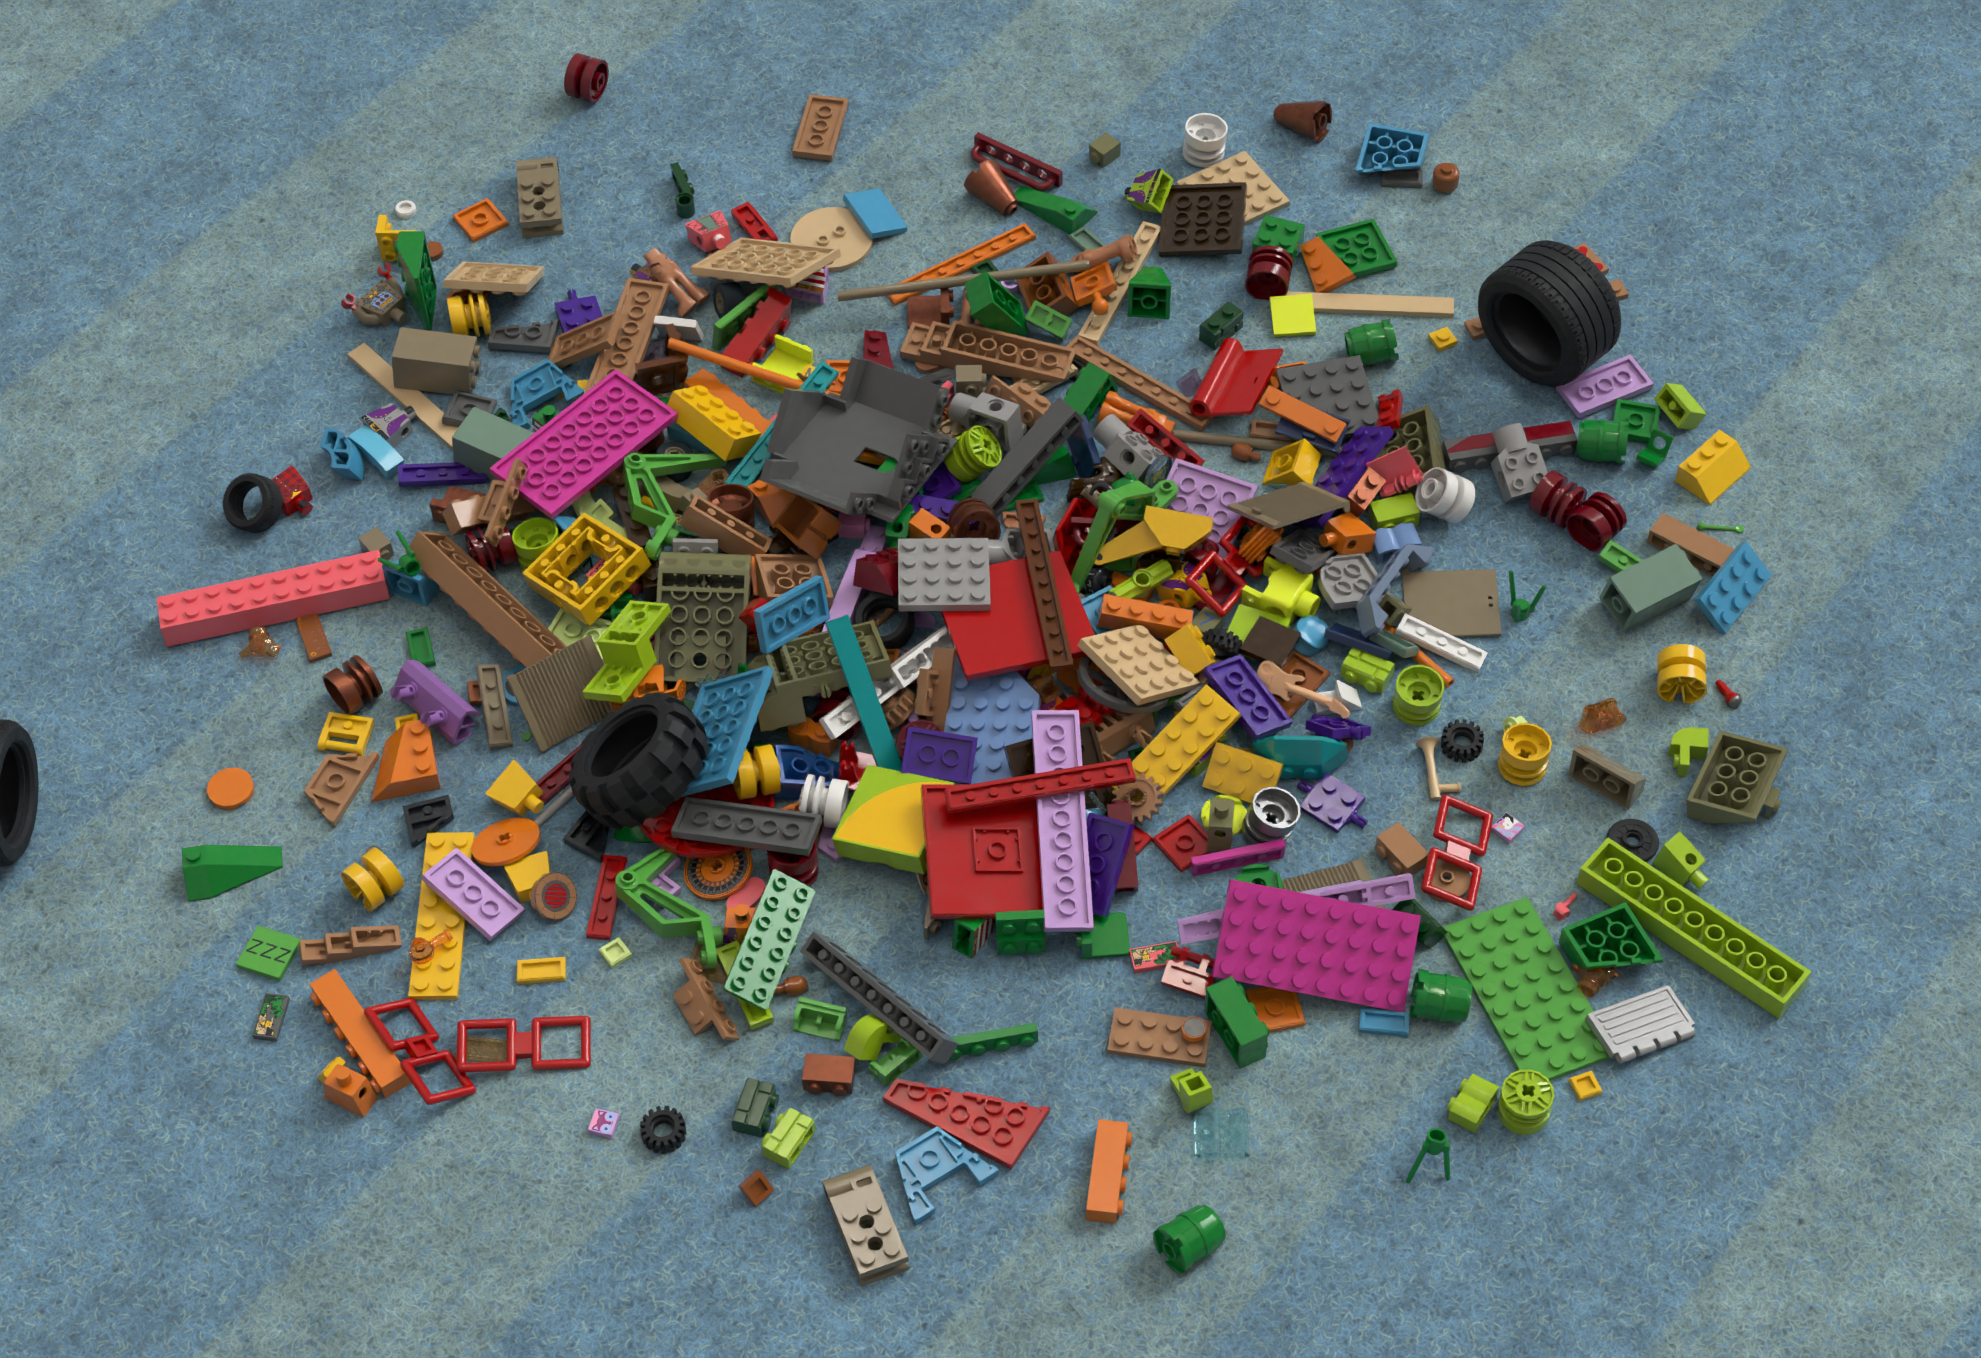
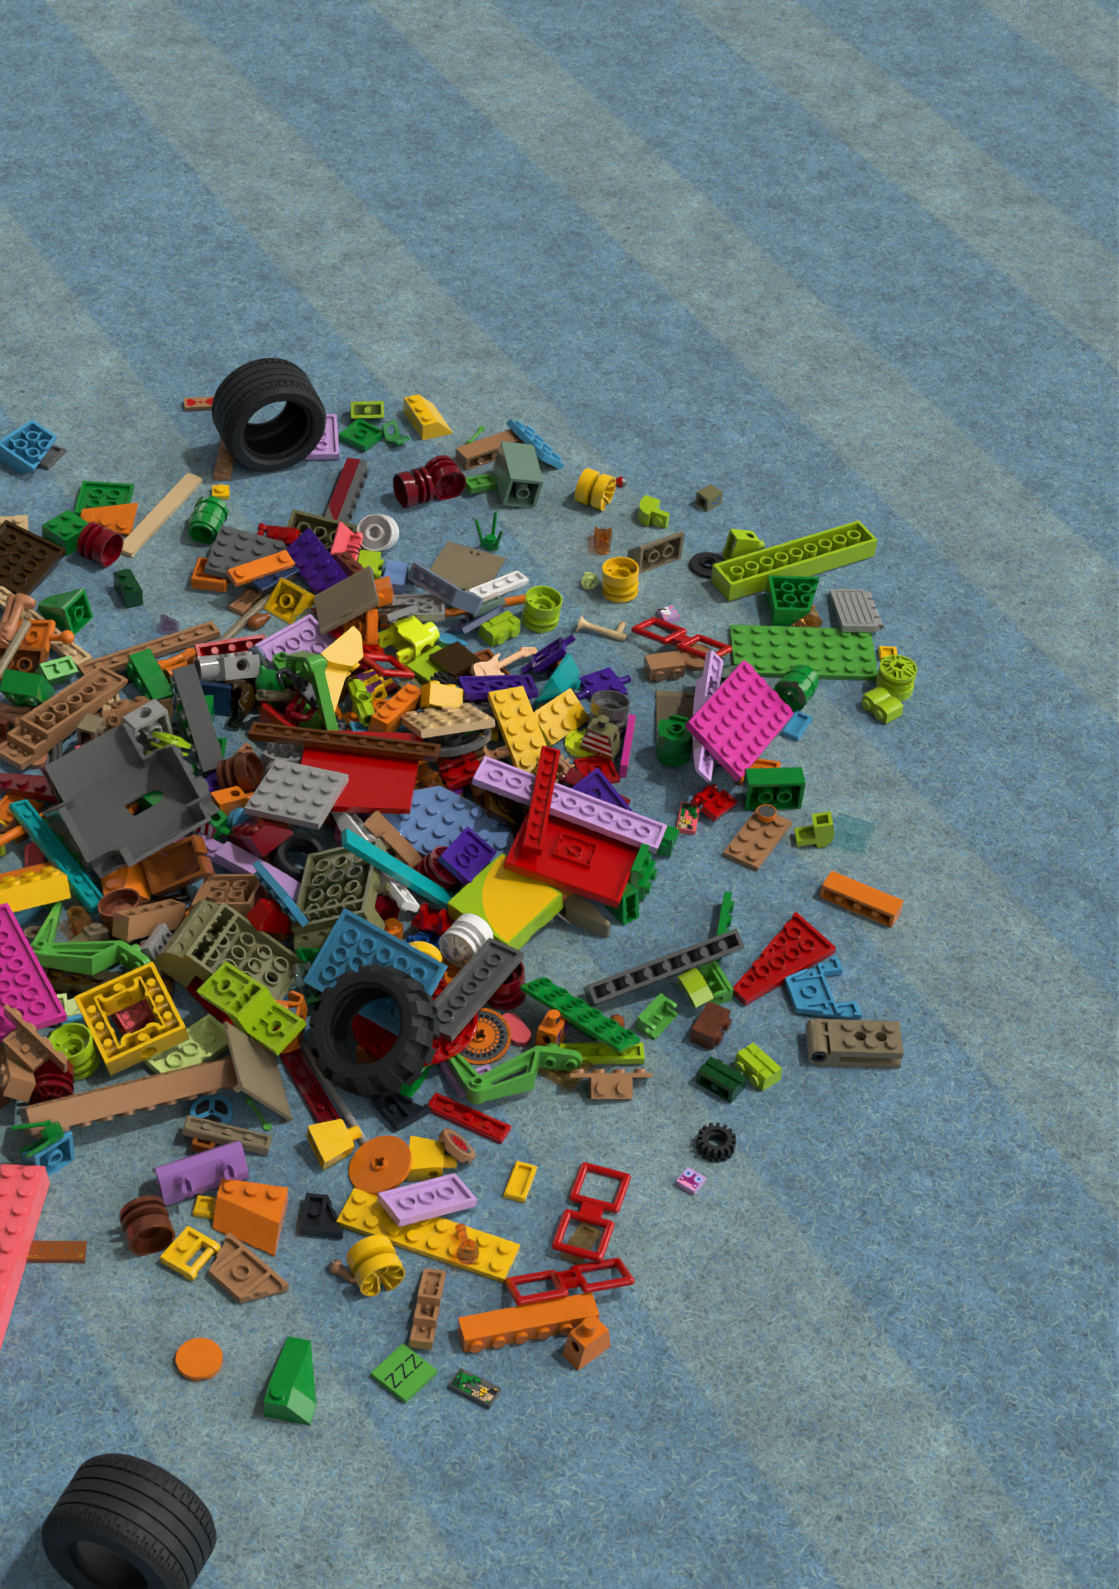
camera: 75 degrees left, 10 degrees down
(260, 643) = (44, 1291): clear orange animal -> none
(328, 1069) = (557, 1352): yellow tile -> none
(420, 646) = (122, 1175): green tile -> none
(615, 952) = (527, 1128): yellowish green tile -> none
(756, 1187) = (793, 1100): dark orange plate -> none
(1189, 1237) = (937, 871): green piece -> none
(1234, 380) = (193, 596): red door -> none
(1292, 315) = (144, 551): neon yellow tile -> none
(1345, 694) = (513, 647): white slope -> none
(1434, 1145) = (917, 723): green plant -> none
(1445, 177) = (72, 433): dark orange head -> none
(1462, 729) = (591, 613): black tyre -> none
(1518, 465) = (372, 491): light grey brick -> none
(1562, 908) = (746, 614): coral hand -> none
(1602, 441) = (377, 448): green piece -> none
(1734, 779) = (694, 498): olive slope -> none

